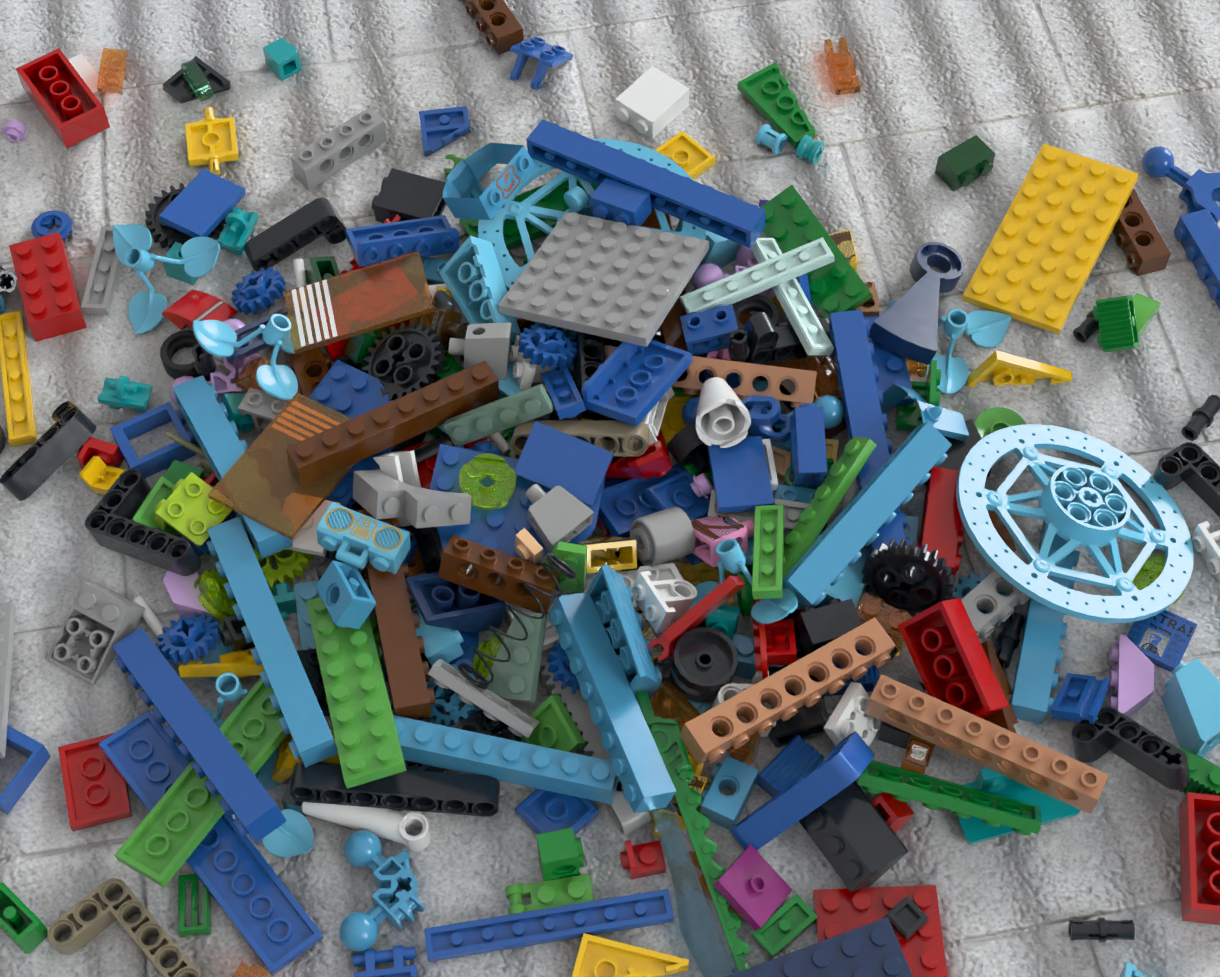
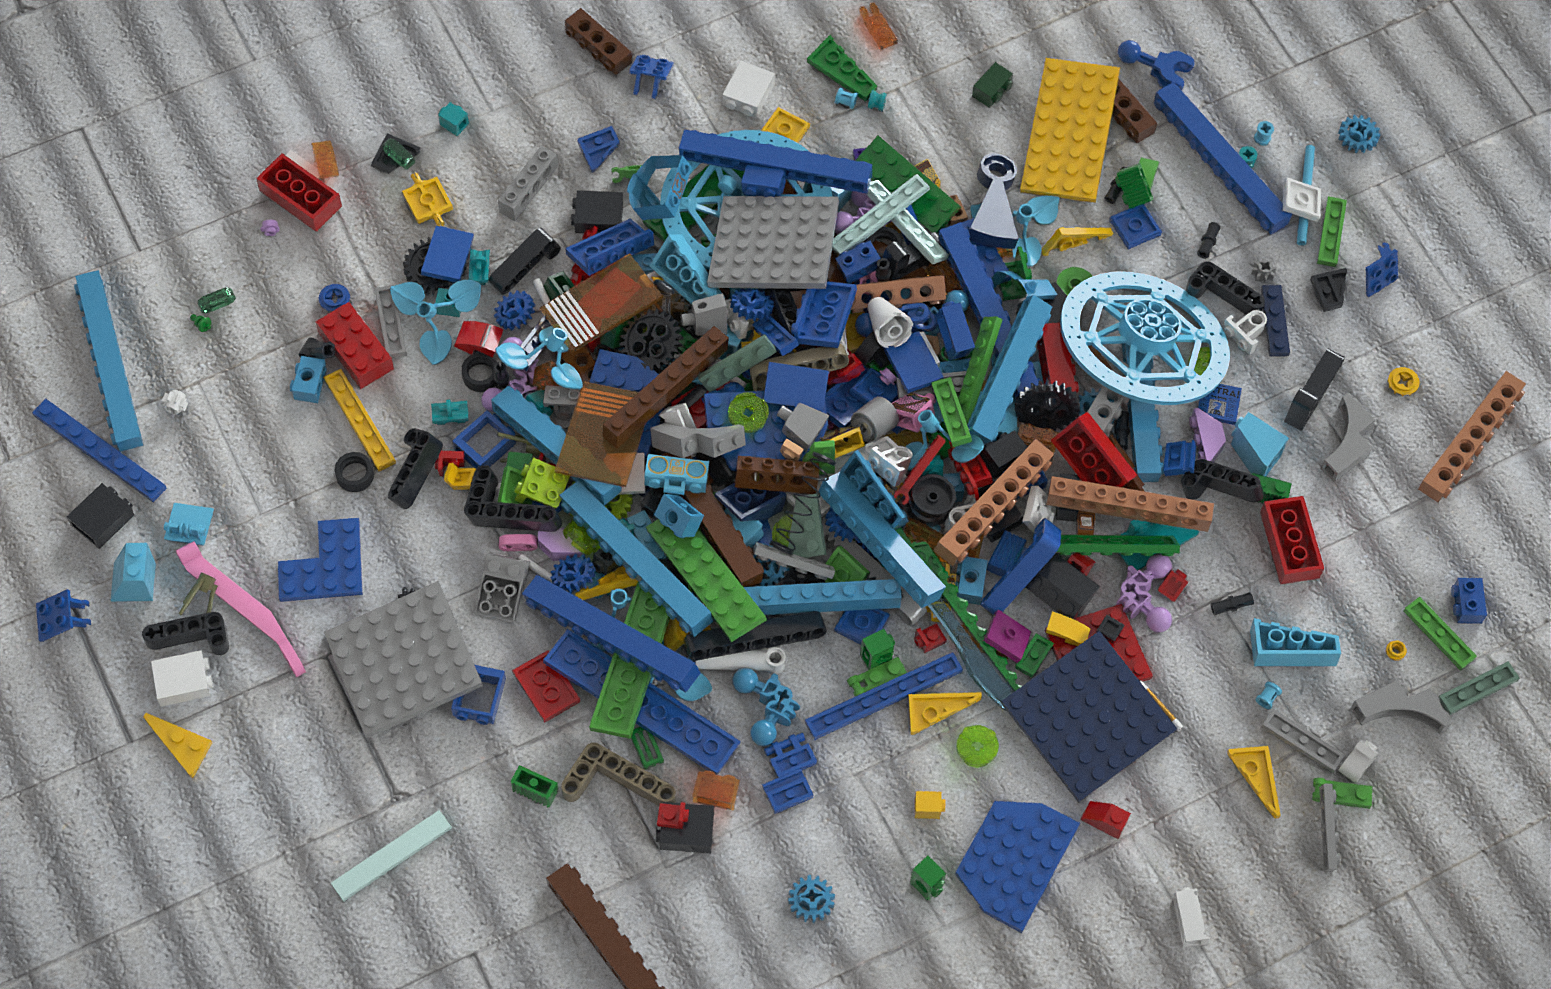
camera: 20 degrees left, 5 degrees up
(139, 579) = (518, 542): none -> bright pink beam
(843, 901) = (1070, 629): none -> yellow slope
(982, 921) = (1140, 582): none -> lavender piece
(1021, 877) = (1173, 584): none -> red bracket
(1105, 377) = (1135, 226): none -> blue tile

